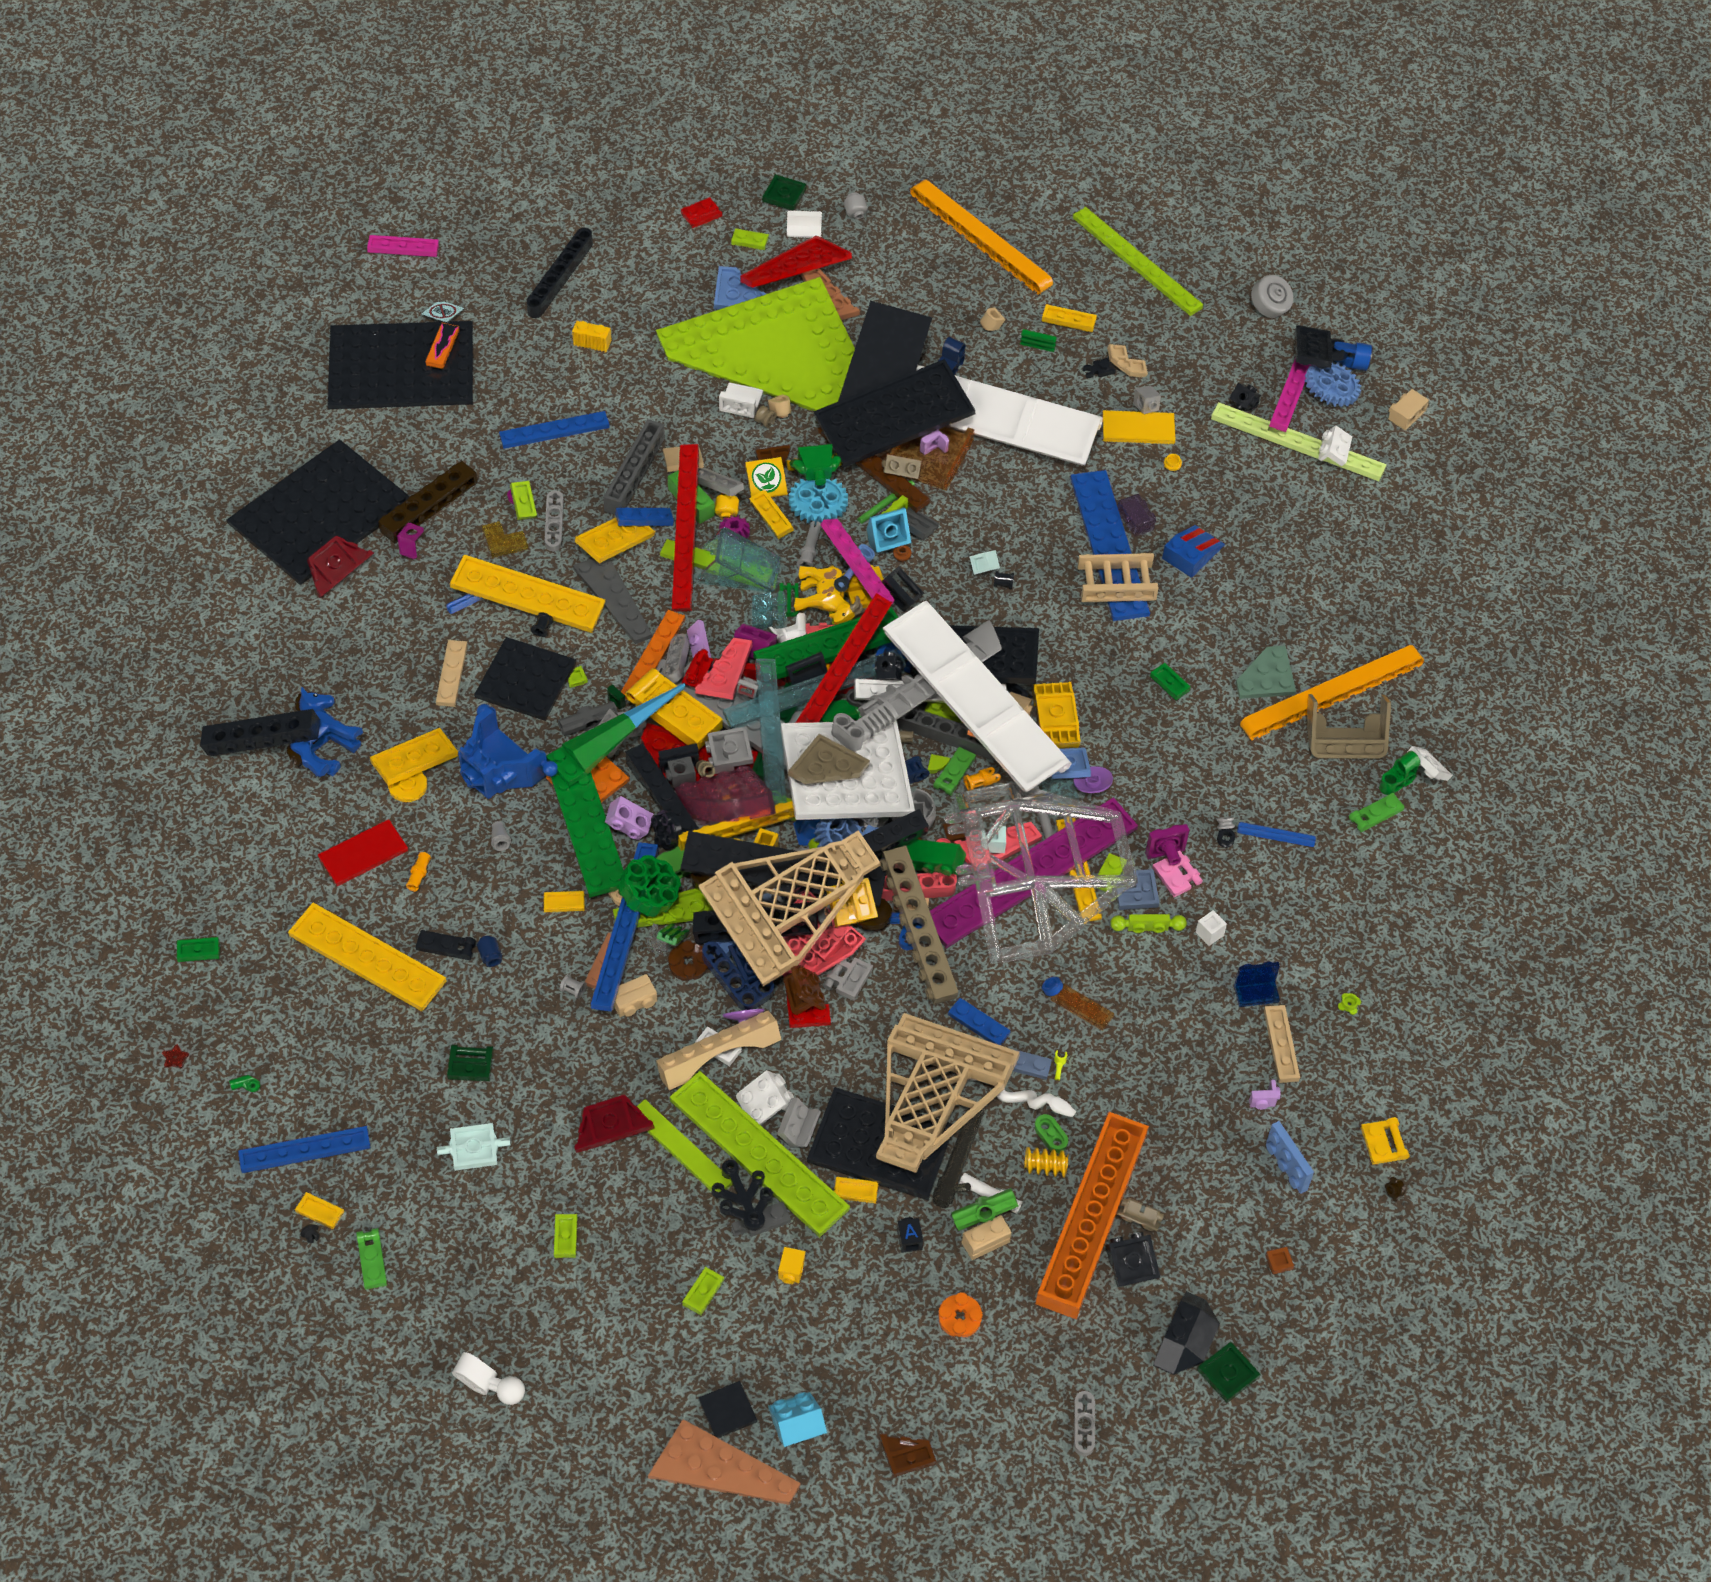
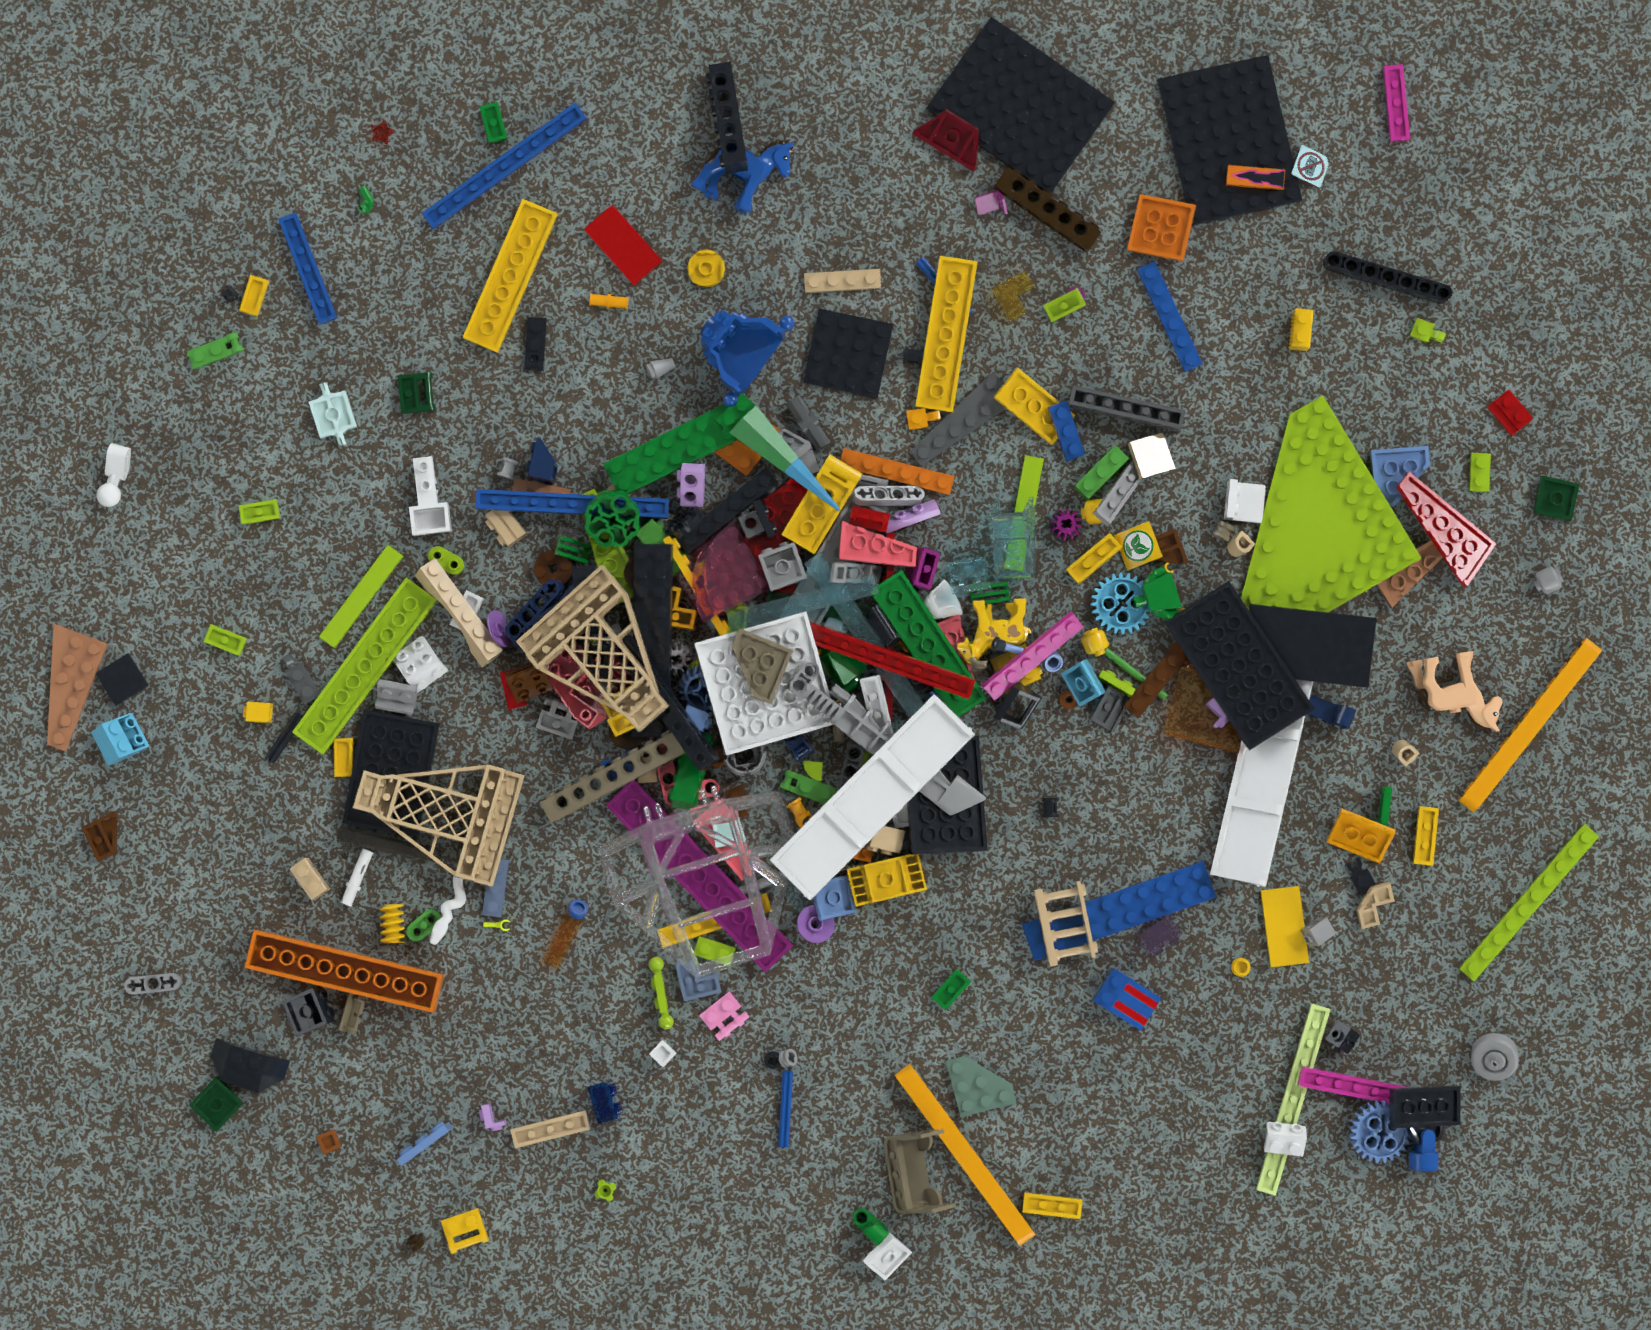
camera: 85 degrees right, 30 degrees up
(248, 947) = (504, 166): none -> blue plate
(414, 756) = (735, 267): yellow tile -> none
(469, 419) = (1161, 227): none -> orange plate
(489, 951) = (532, 385): dark blue brick -> none
(554, 521) = (1048, 338): light grey beam -> none
(564, 901) = (600, 442): yellow tile -> none
(575, 946) = (542, 466): none -> dark blue slope
(577, 677) = (858, 403): lime tile -> none
(604, 631) = (918, 418): none -> light orange plate
(606, 1064) = (429, 515): none -> white plate
(610, 1122) = (374, 530): dark red wing -> none
(614, 258) = (1424, 330): none -> lime plate
(616, 696) = (838, 443): dark green tile -> none
(653, 1056) = (446, 559): none -> lime plate
(685, 528) = (1052, 475): red plate -> none
(705, 768) = (753, 547): dark tan pin -> none
(742, 1197) = (312, 660): black plant -> none
(804, 223) = (1510, 528): white panel -> none
(808, 552) = (1051, 604): light grey pin -> none
(824, 1246) = (283, 739): none -> black axle
(852, 522) = (1095, 642): none -> yellow head
(889, 667) = (895, 707): black brick -> none
(901, 466) = (1171, 683): dark tan hinge -> none
(910, 1234) = (303, 811): black brick -> none
(947, 275) = (1457, 695): none -> light nougat animal
(959, 1327) = (236, 854): orange plate -> none
(978, 1022) = (530, 845): blue plate -> none
(984, 562) = (1069, 785): light aqua panel -> none
(997, 1203) = (334, 874): bright green piece -> none
(1063, 359) = (1360, 836): none -> light orange tile
(1167, 843) = (745, 1004): magenta plate -> none
(1377, 812) = (828, 1206): bright green plate -> none
(1386, 631) = (1052, 1205): none -> yellow plate
(1408, 409) = (1359, 1216): tan brick -> none

